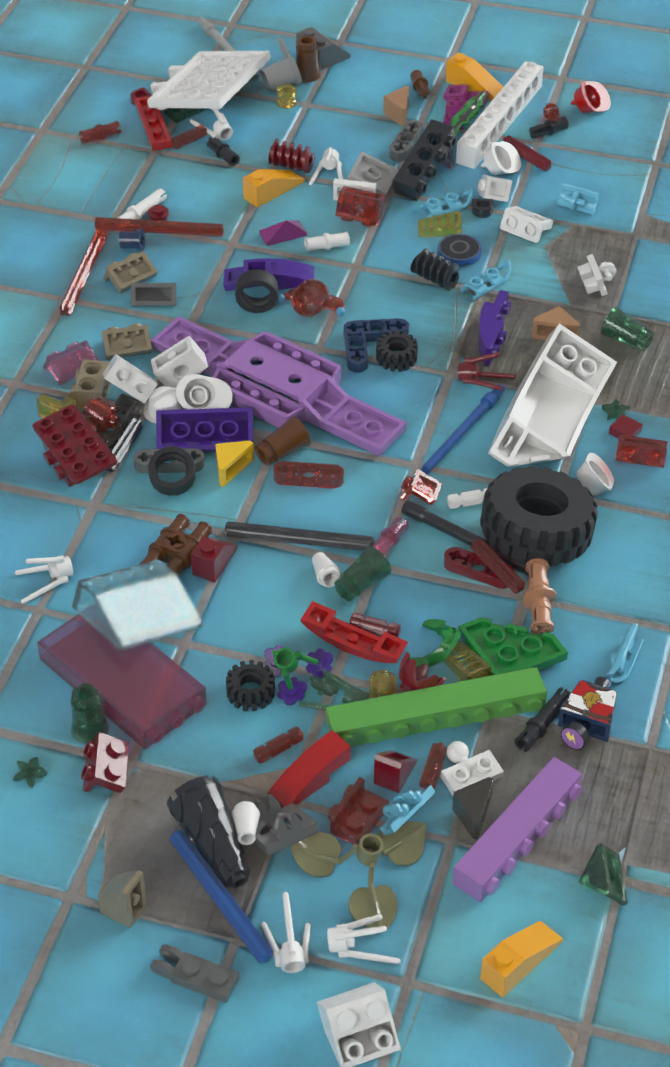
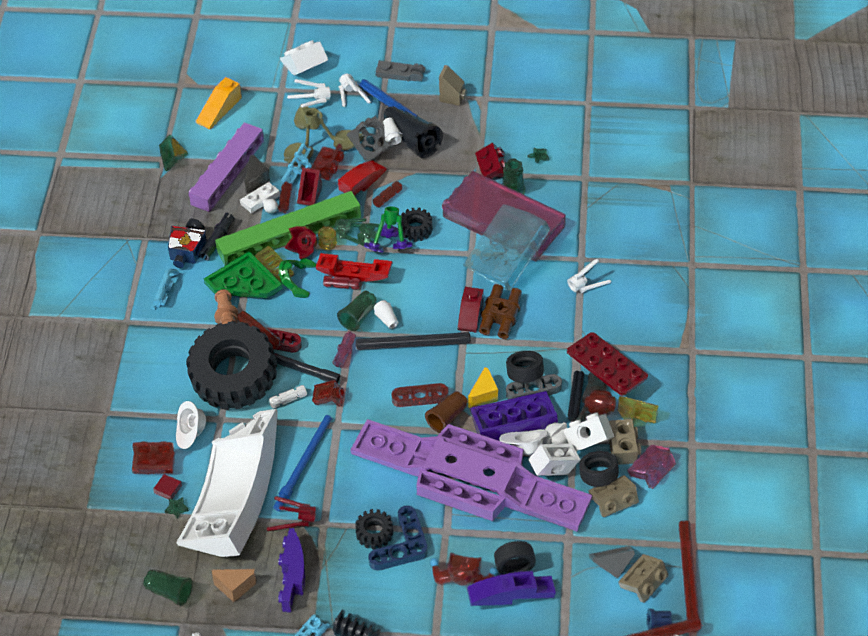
camera: 170 degrees right, 5 degrees up
(135, 343) = (596, 459): none -> black tyre

